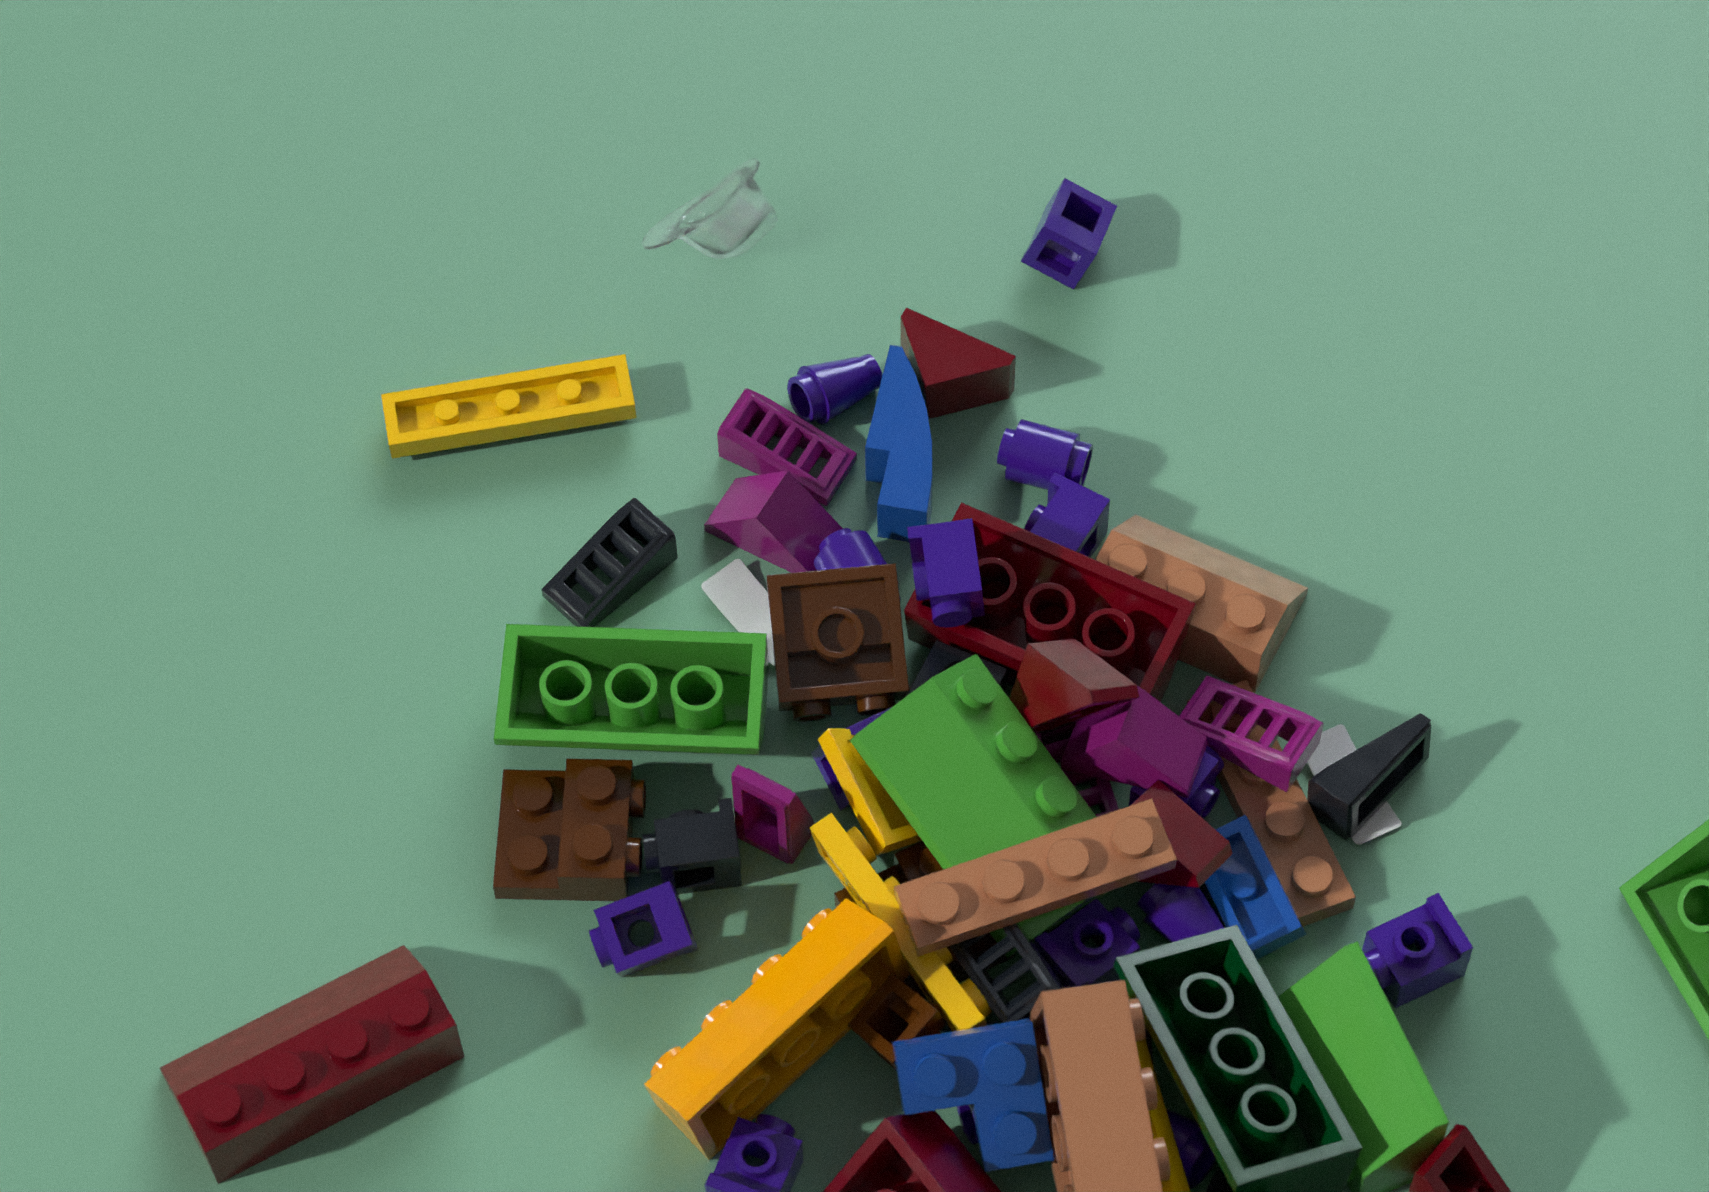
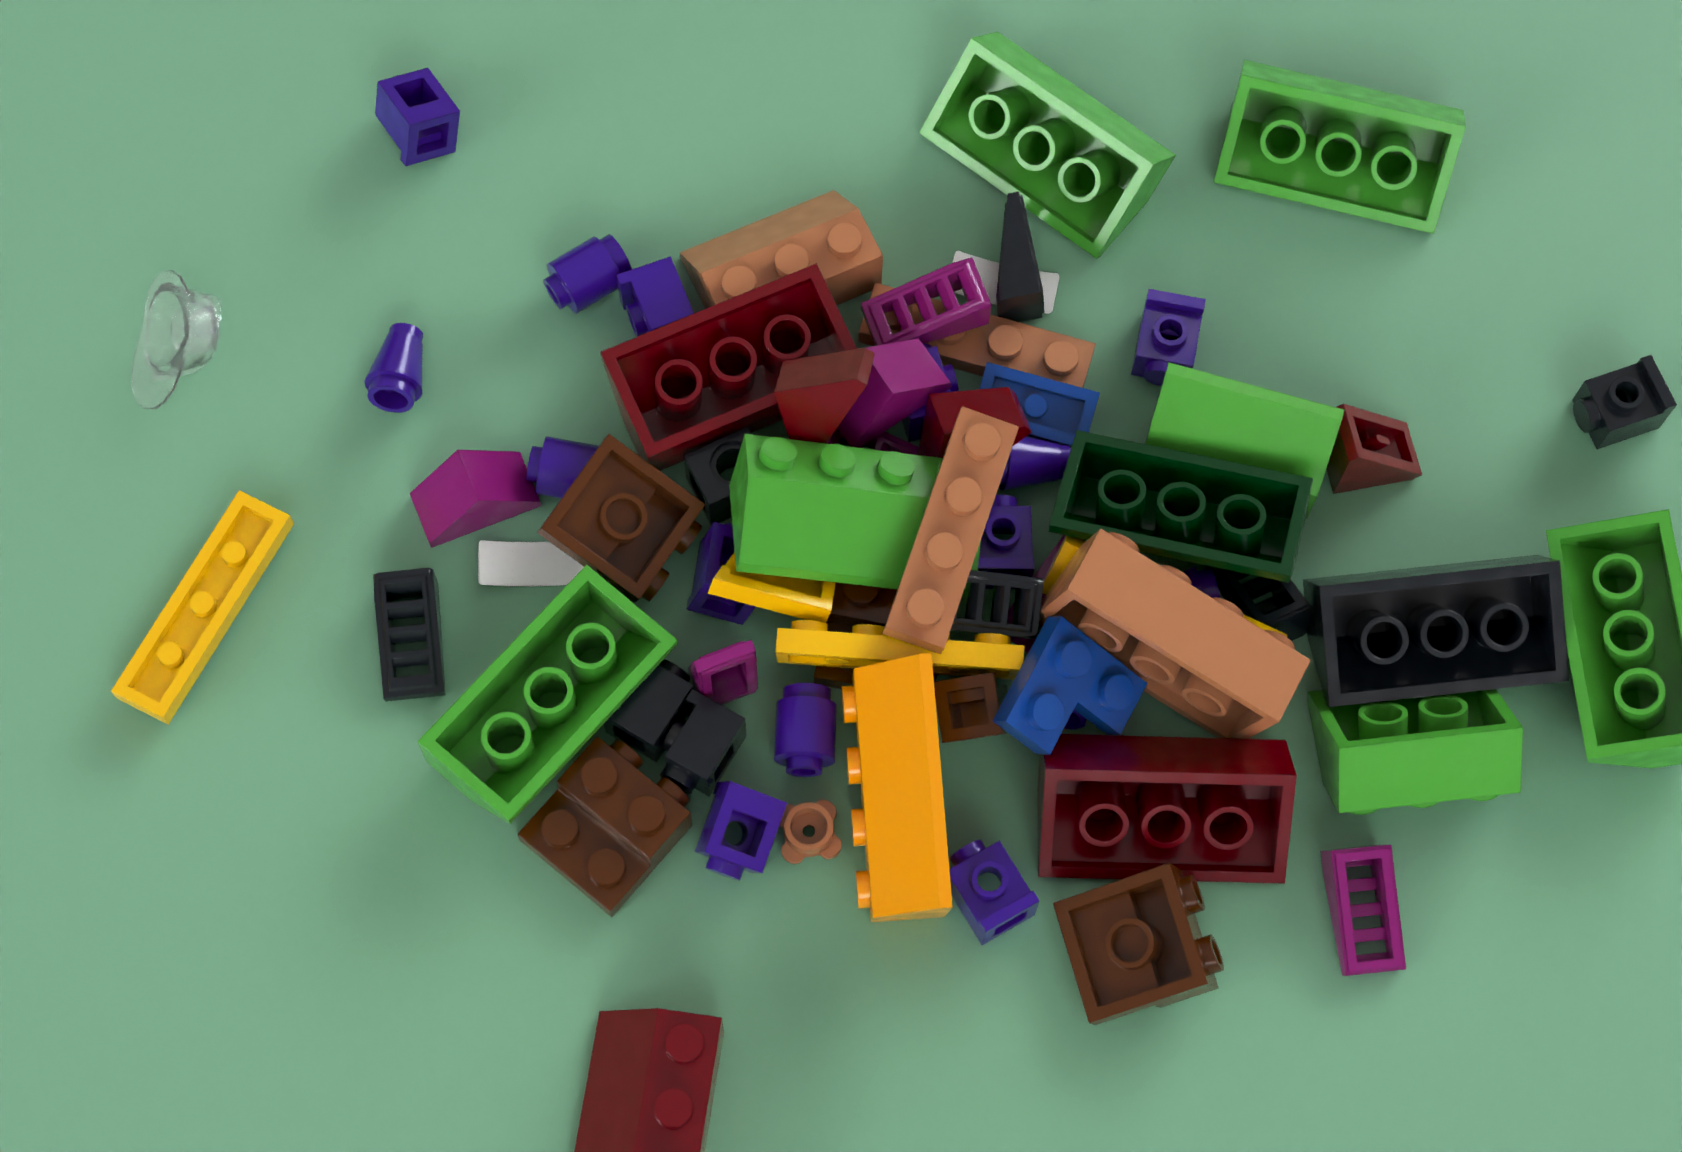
camera: 55 degrees left, 10 degrees up
(688, 973) = (814, 815): none -> nougat plate
(691, 781) = (652, 710): none -> black brick
(774, 420) = (412, 421): magenta slope -> none
(775, 917) = (805, 729): none -> dark purple brick
(900, 450) = (496, 362): blue slope -> none
(947, 571) = (658, 402): dark purple brick -> none
(954, 367) = (452, 279): dark red slope -> none
(1515, 717) = (1046, 139): none -> bright green slope

